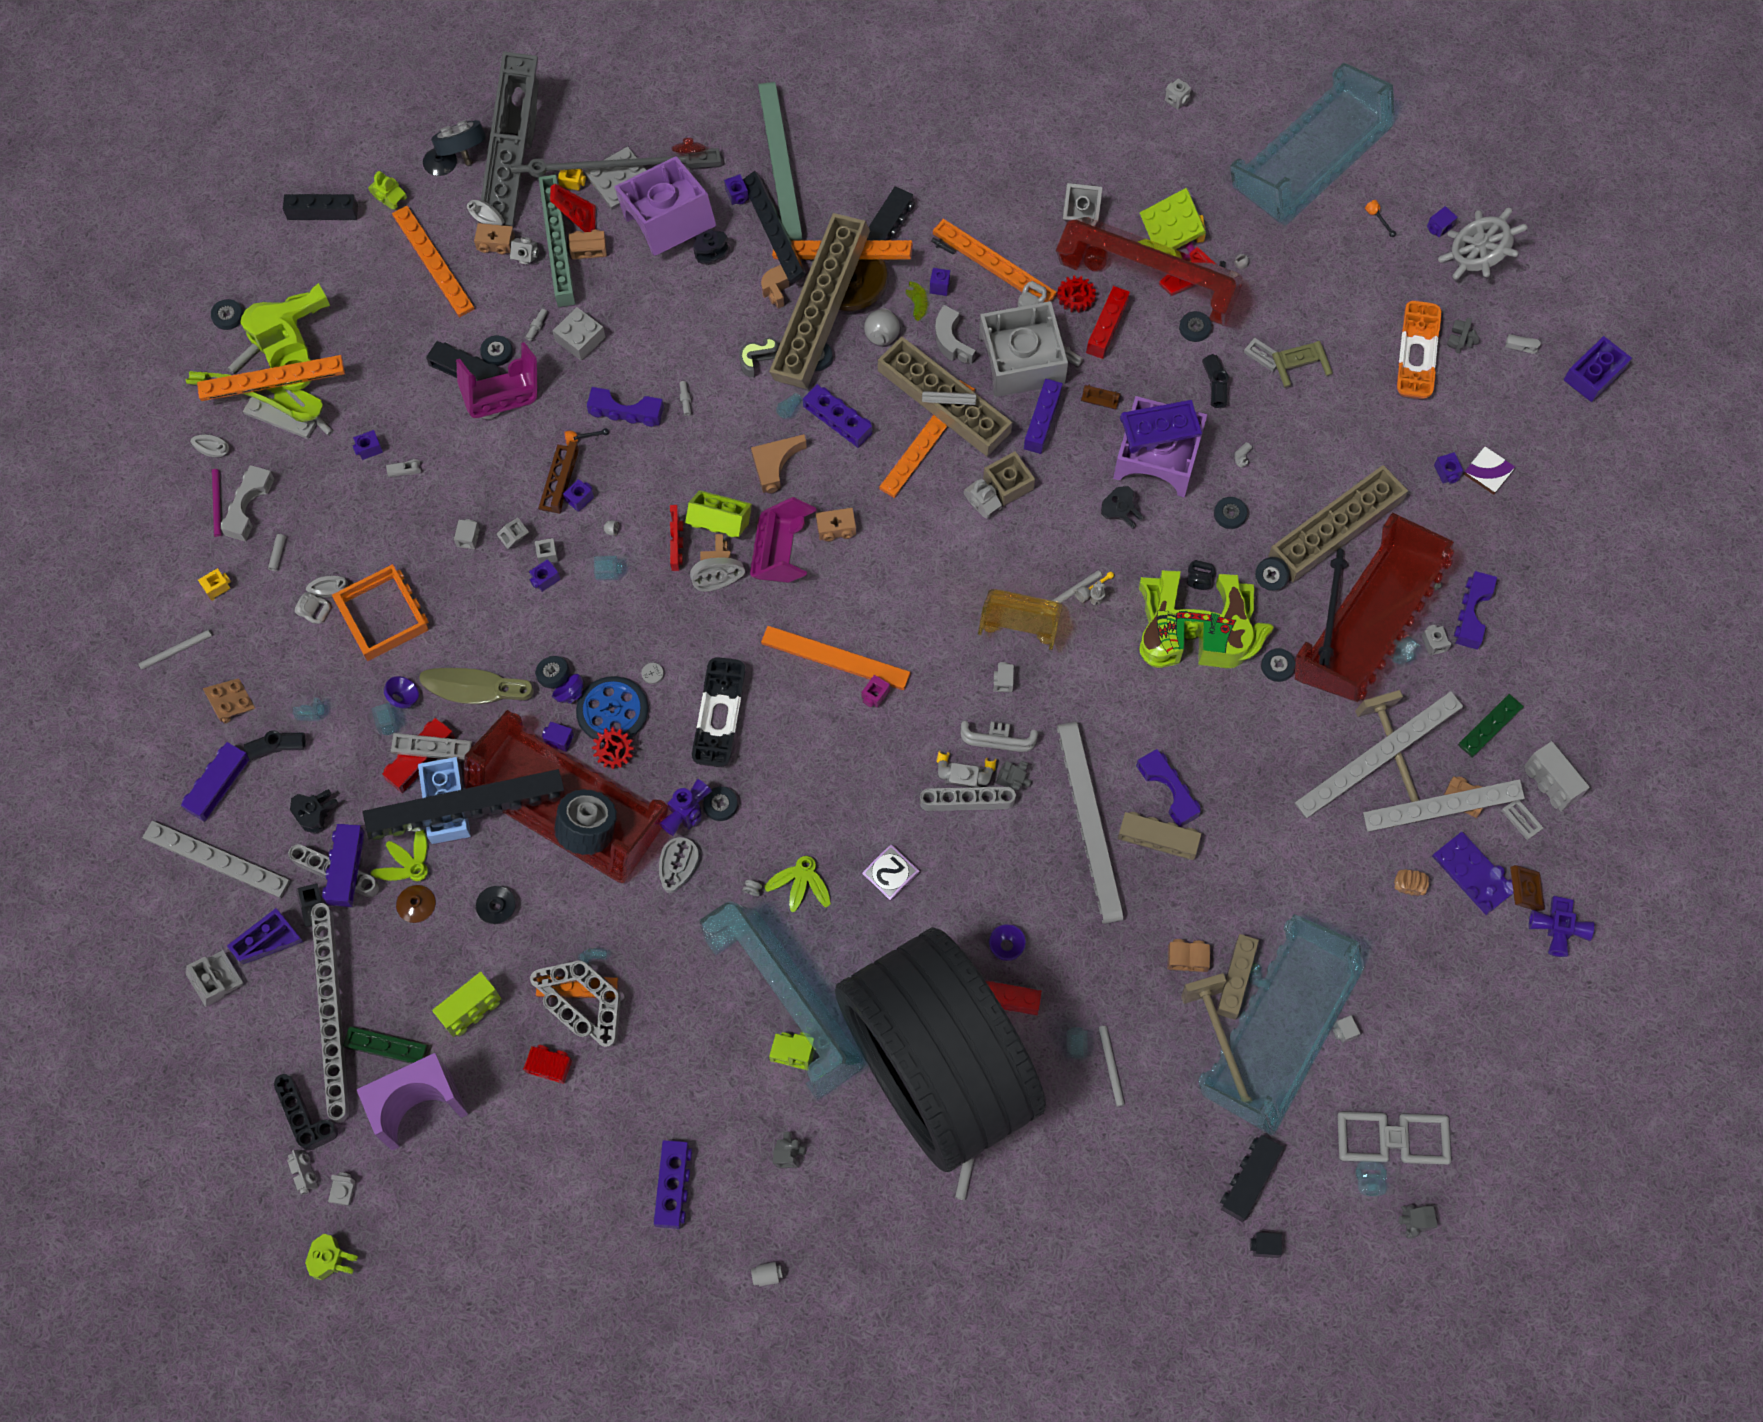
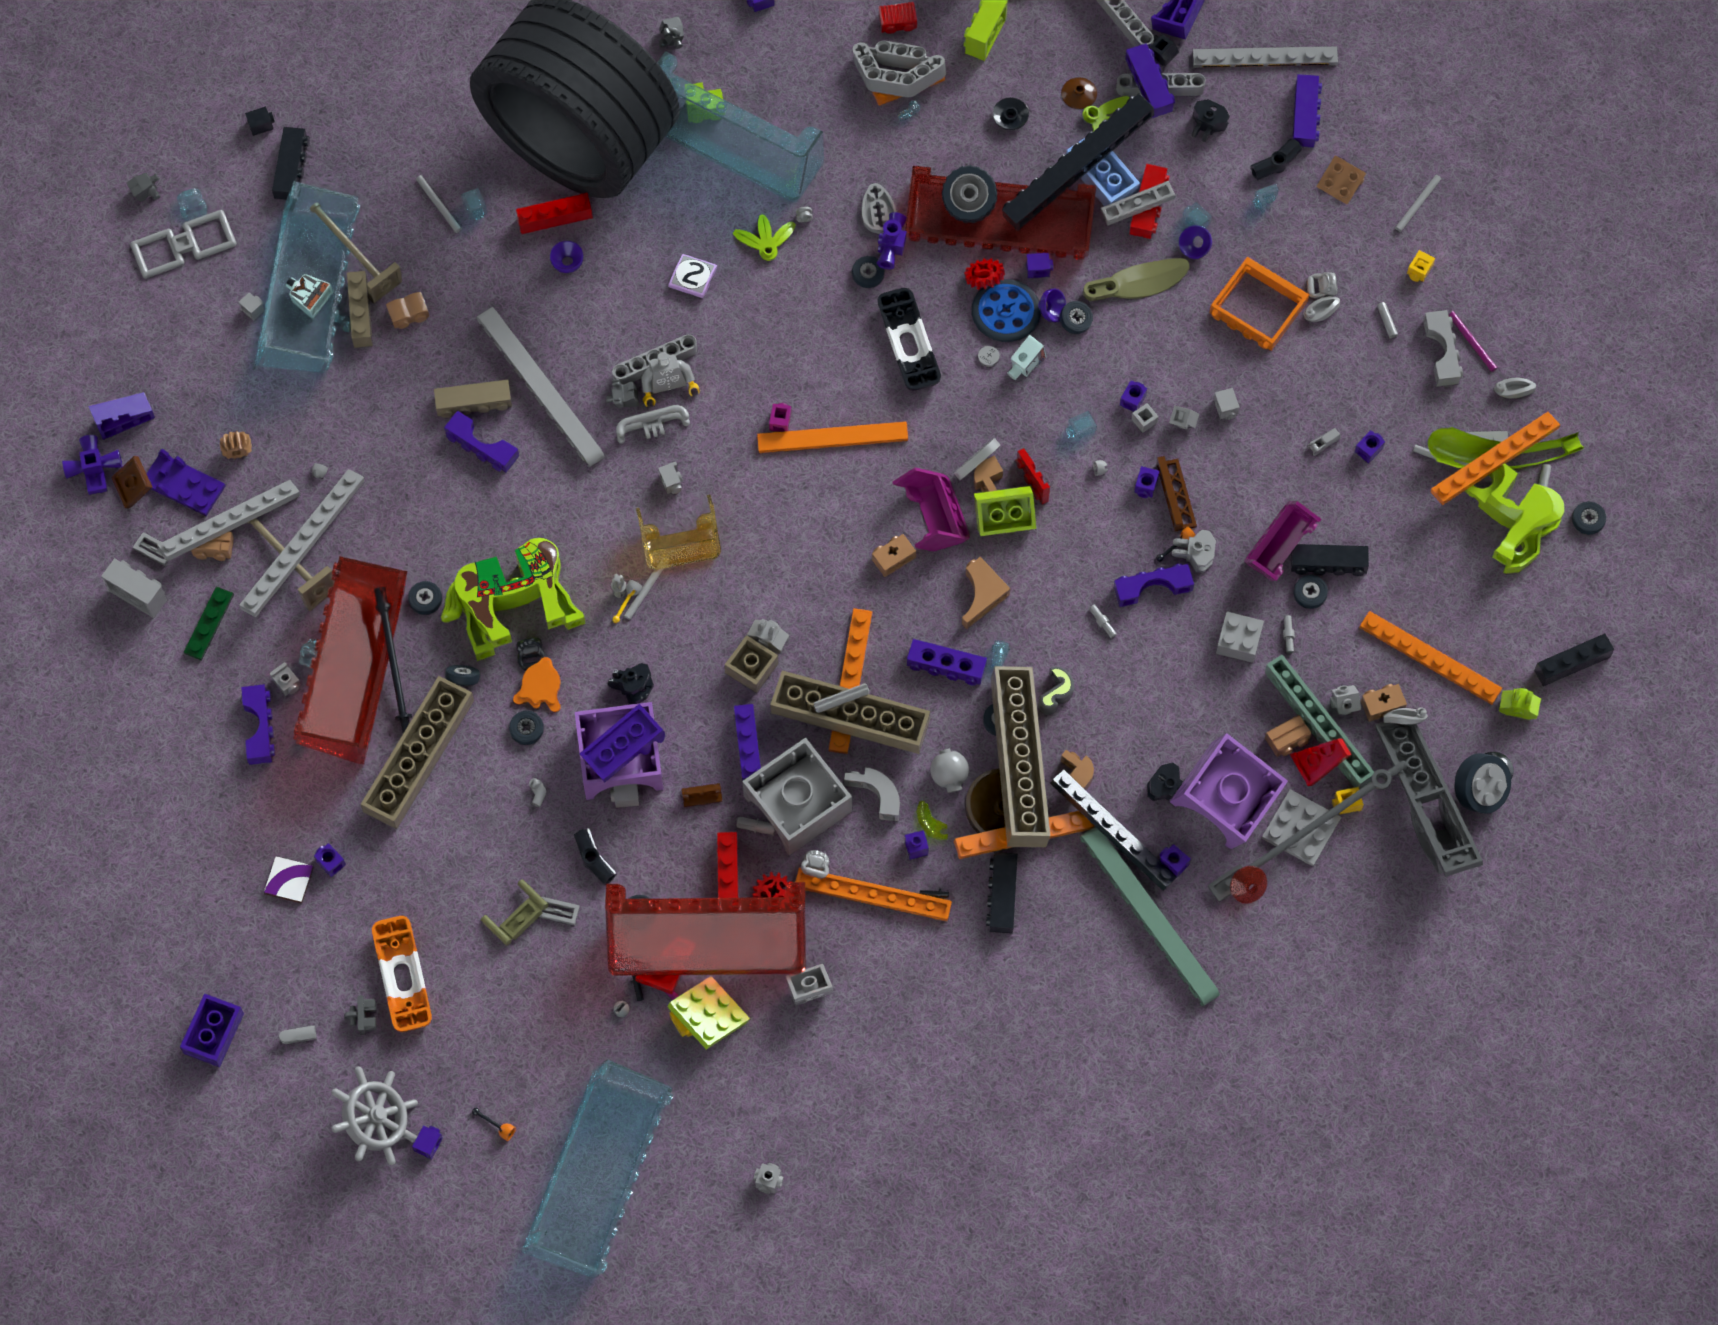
camera: 155 degrees right, 0 degrees up
(570, 416) = (1199, 550): none -> light grey hinge
(620, 647) = (1026, 358): none -> light aqua torso
(1204, 542) = (540, 685): none -> orange tile
(1283, 1014) = (309, 293): none -> torso
(1336, 826) = (319, 470): none -> light grey hinge
(1517, 965) = (121, 414): none -> dark purple wedge

